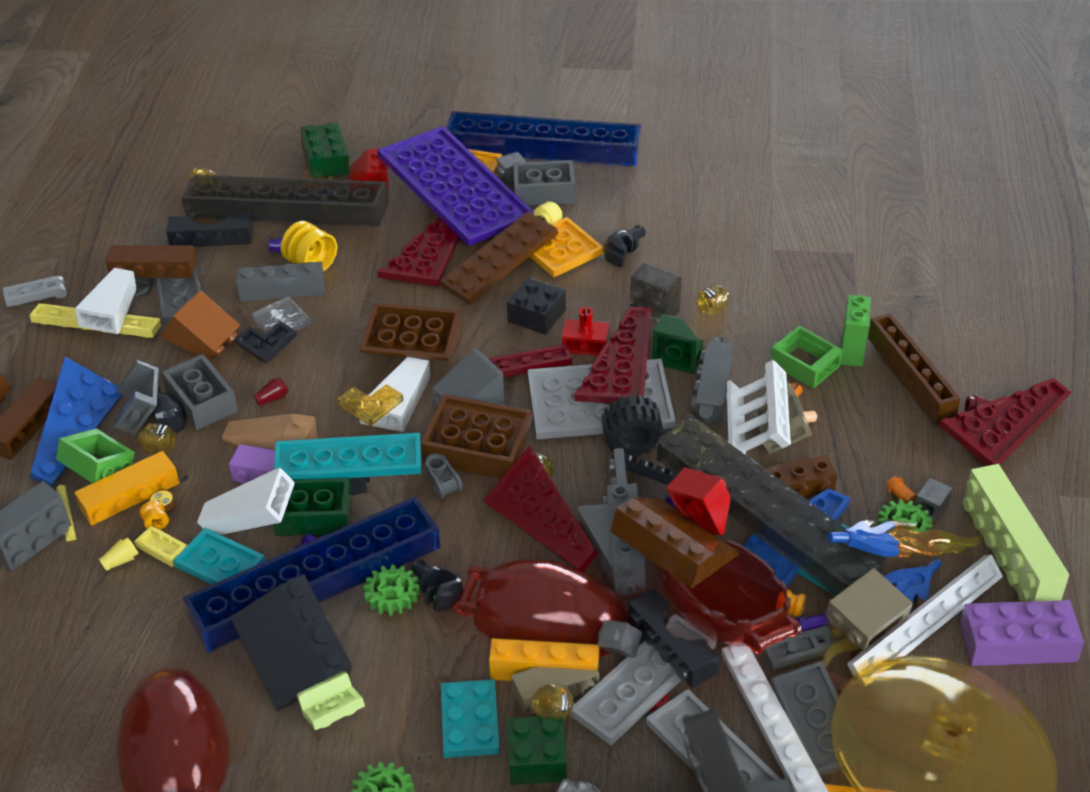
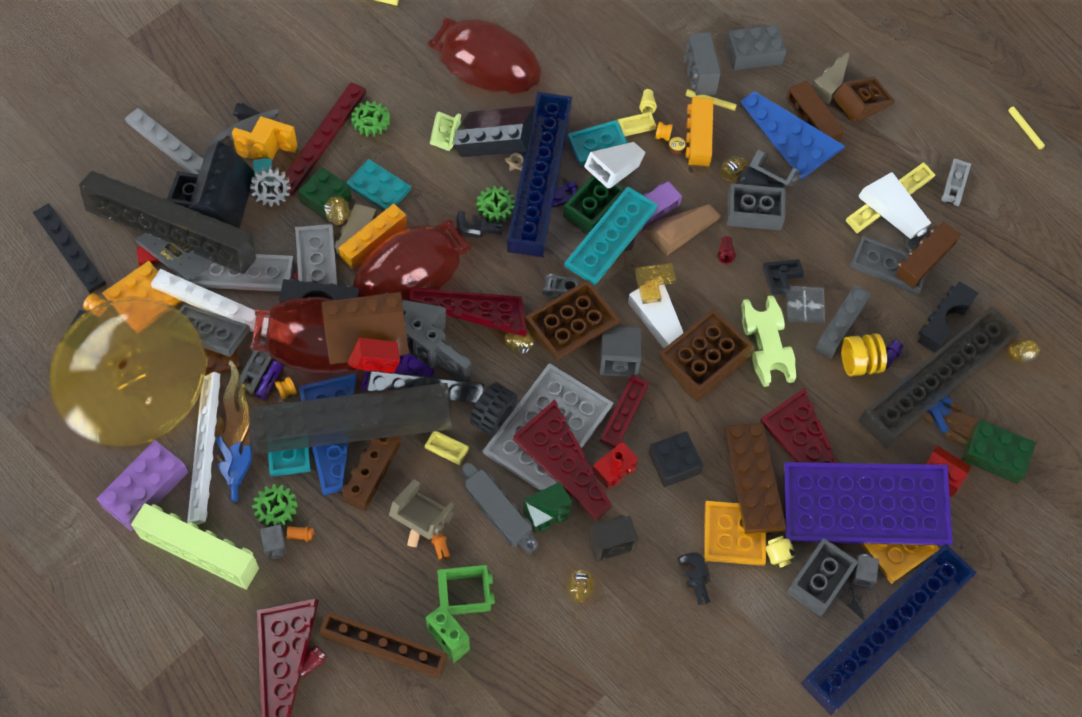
camera: 125 degrees right, 20 degrees up
(77, 452) = (755, 122): bright green window -> none
(201, 327) = (823, 243): dark orange slope -> none
(341, 324) = (771, 353): none -> yellowish green piece
(619, 638) = (343, 269): flat silver brick -> none
(776, 416) = (425, 500): white fence -> none
(867, 608) = (230, 405): dark tan panel -> none
(898, 539) = (258, 464): piece -> none

